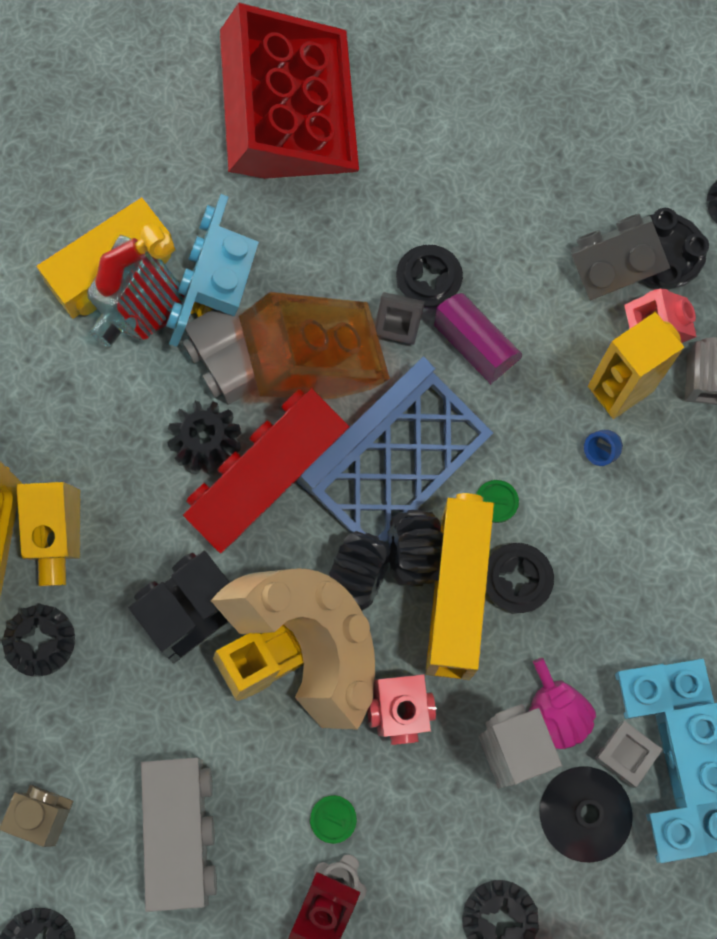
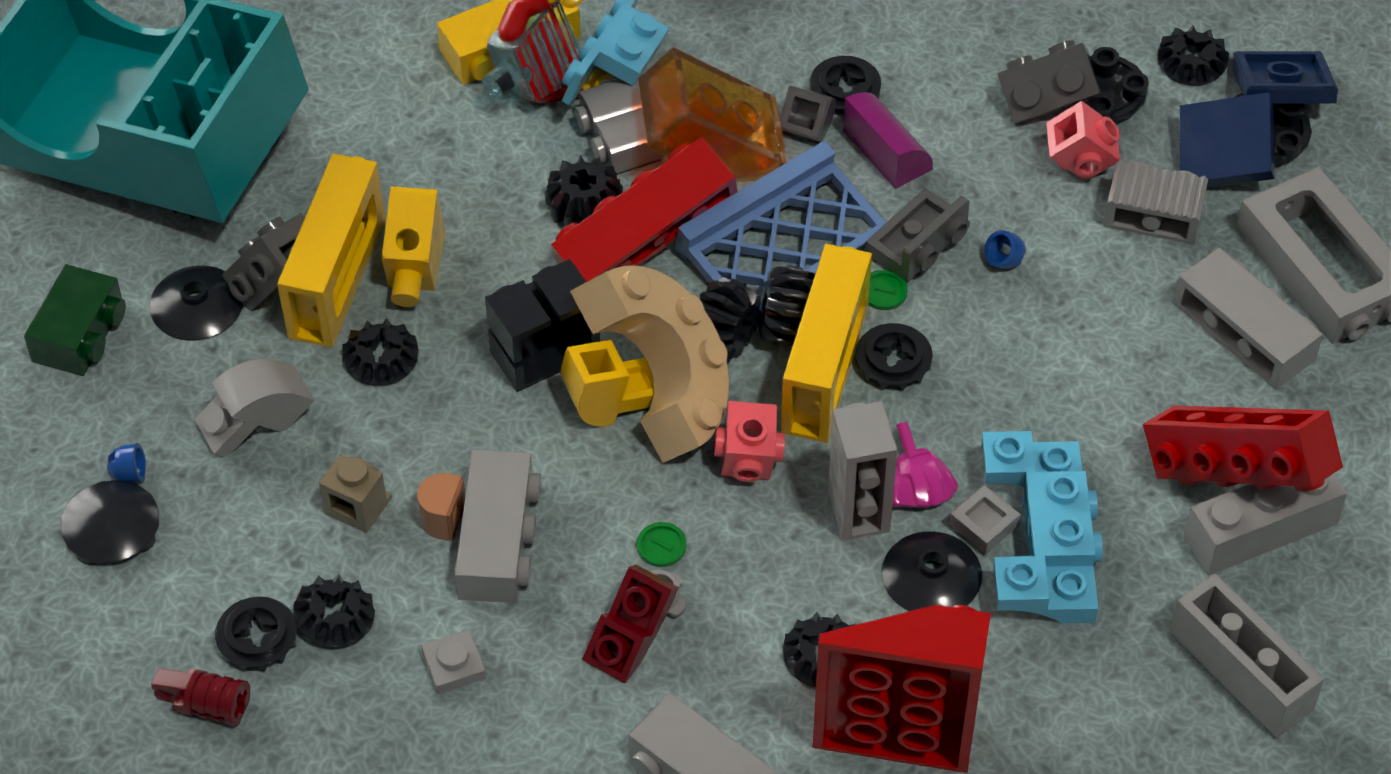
camera: 10 degrees right, 20 degrees down
(120, 818) = (441, 504): none -> nougat brick
(520, 440) = (919, 234): none -> dark grey bracket
(635, 364) = (1041, 163): yellow brick -> none

